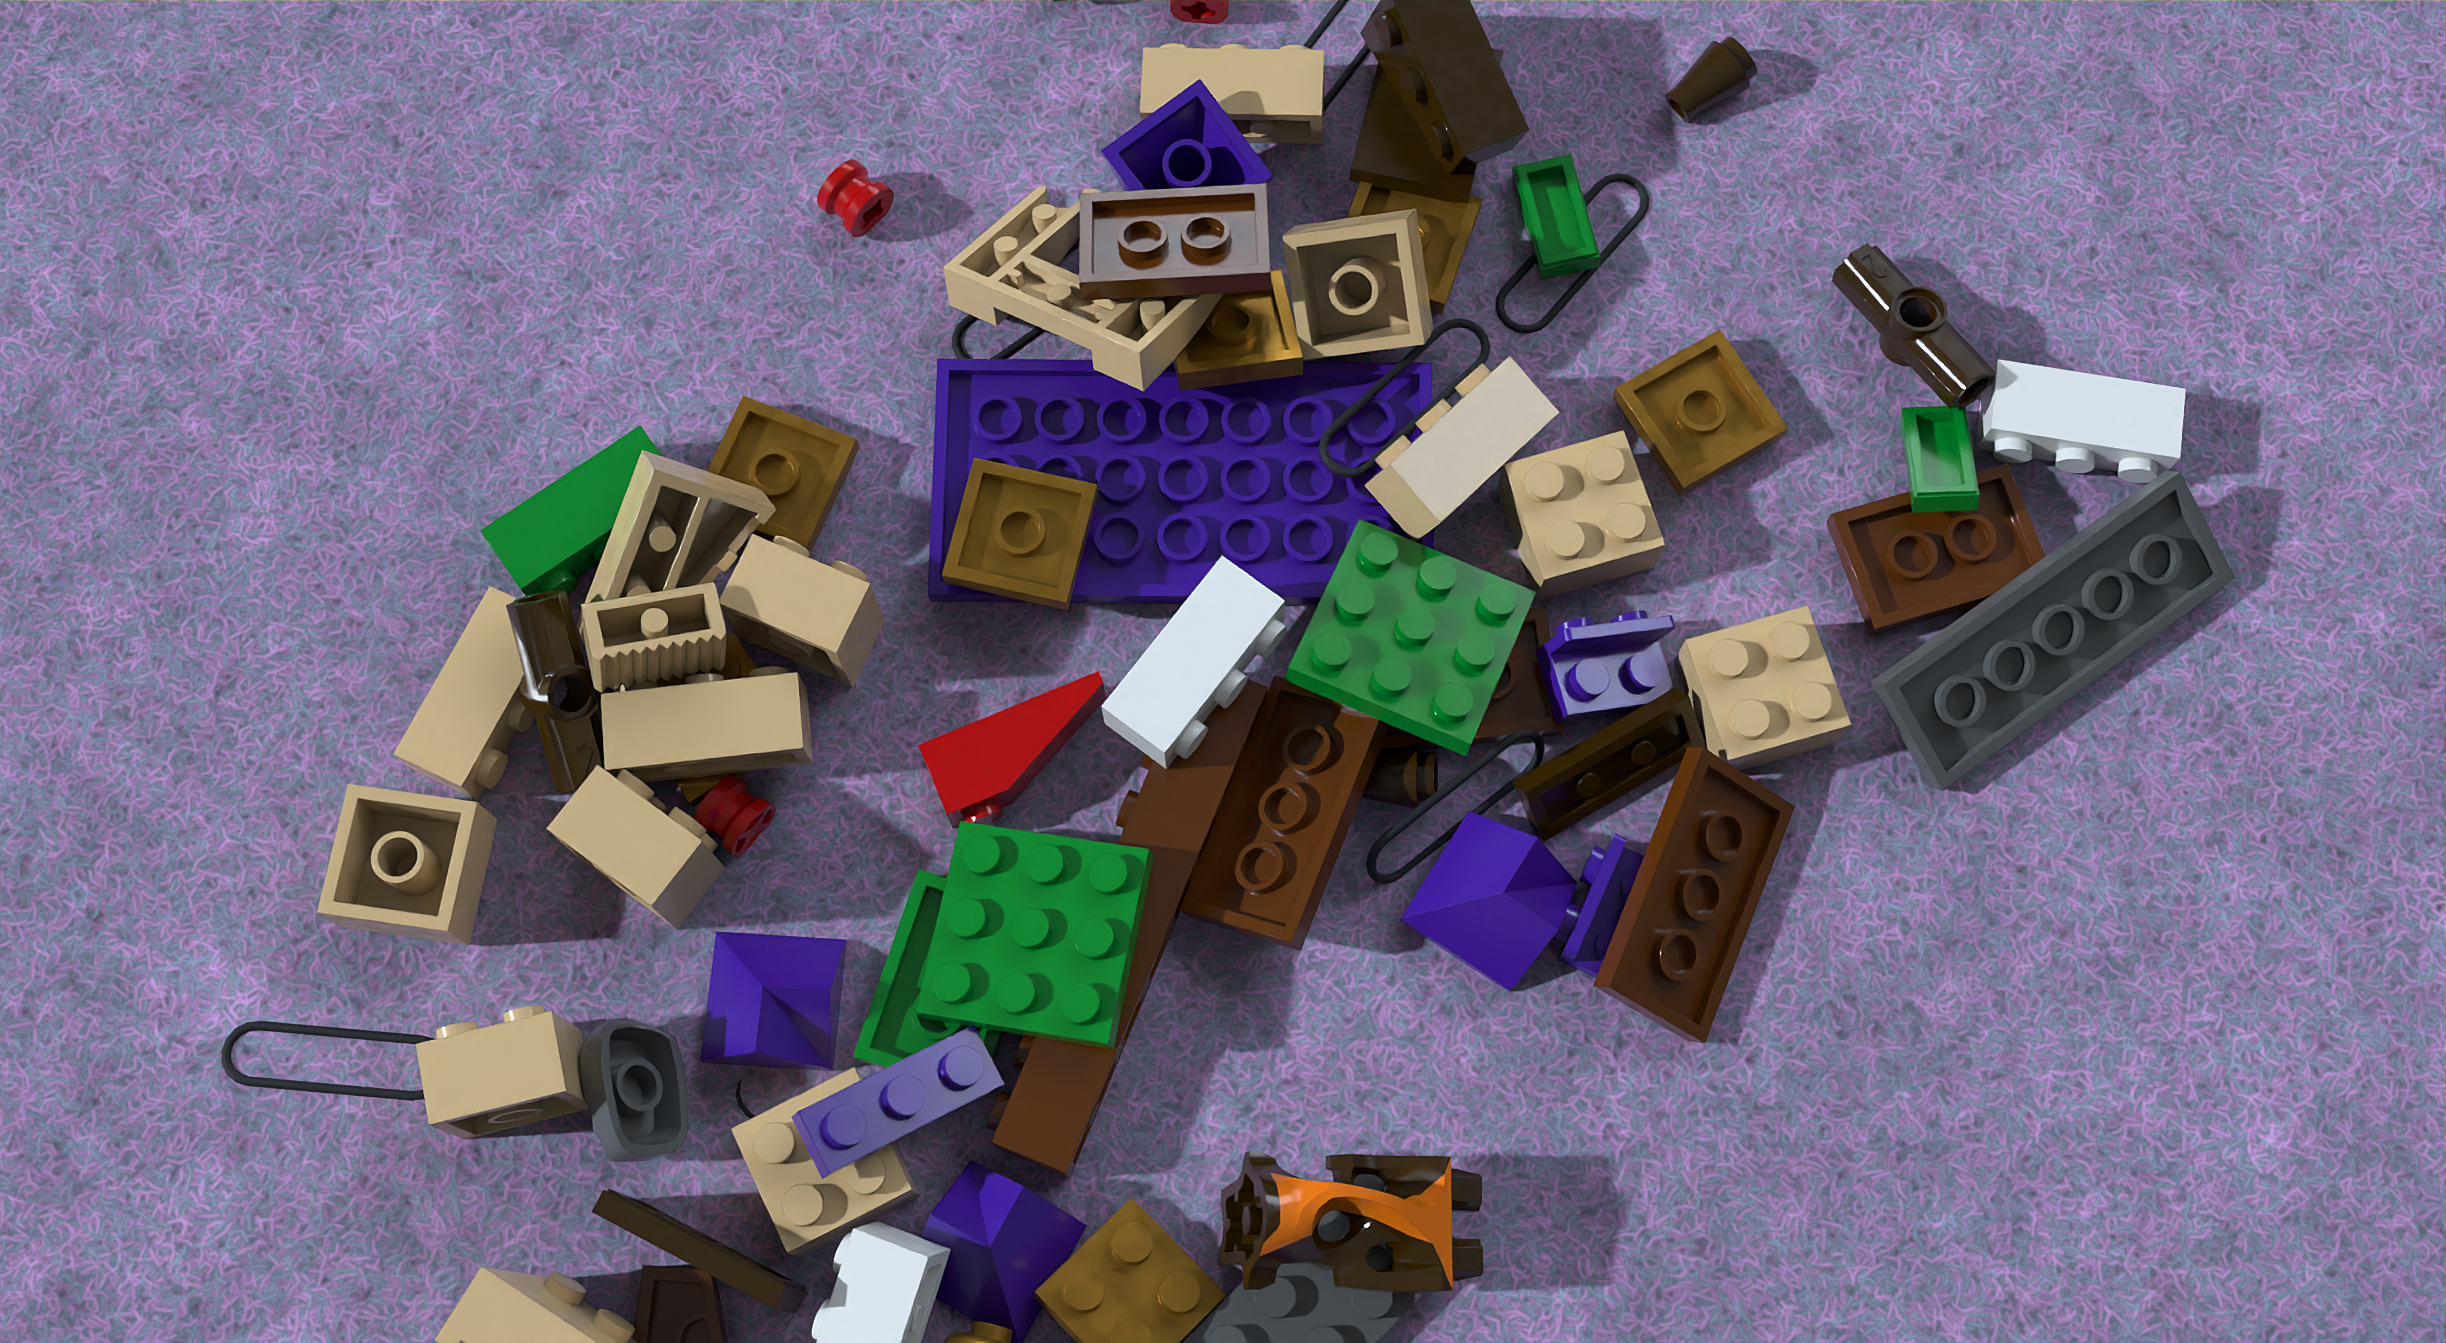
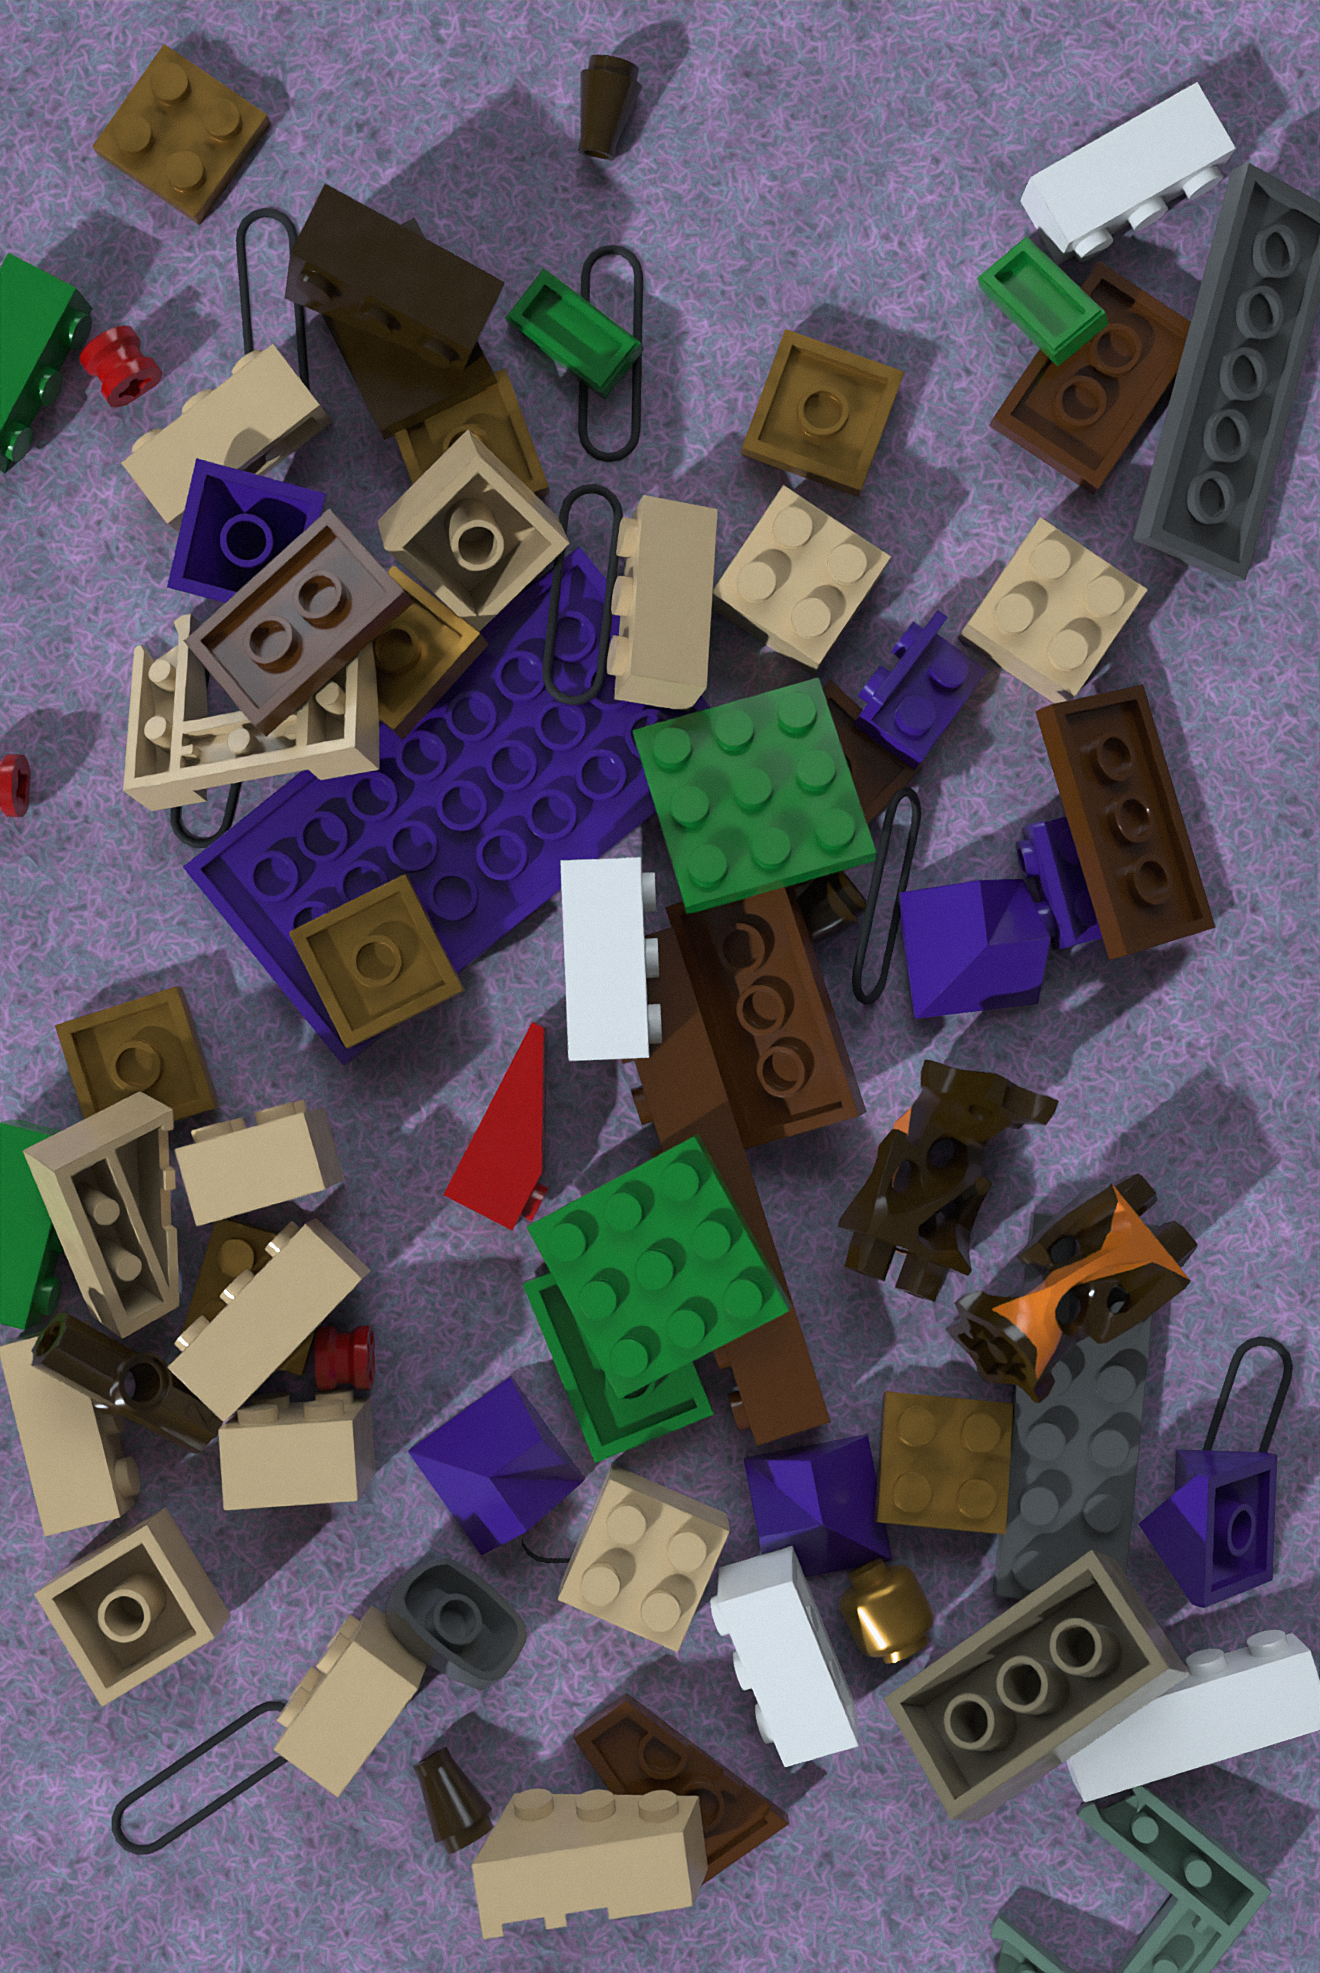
camera: 35 degrees left, 15 degrees up
(504, 1232) = (452, 1802): none -> dark brown cone
(654, 636) = (169, 1293): tan brick -> none
(700, 1250) = (612, 1701): dark brown tile -> none
(897, 1101) = (666, 1480): dark purple plate -> none
(1379, 1006) = (906, 1192): none -> dark brown hips
(1609, 763) = (978, 765): dark brown plate -> none
(1913, 327) = (975, 209): dark brown piece -> none

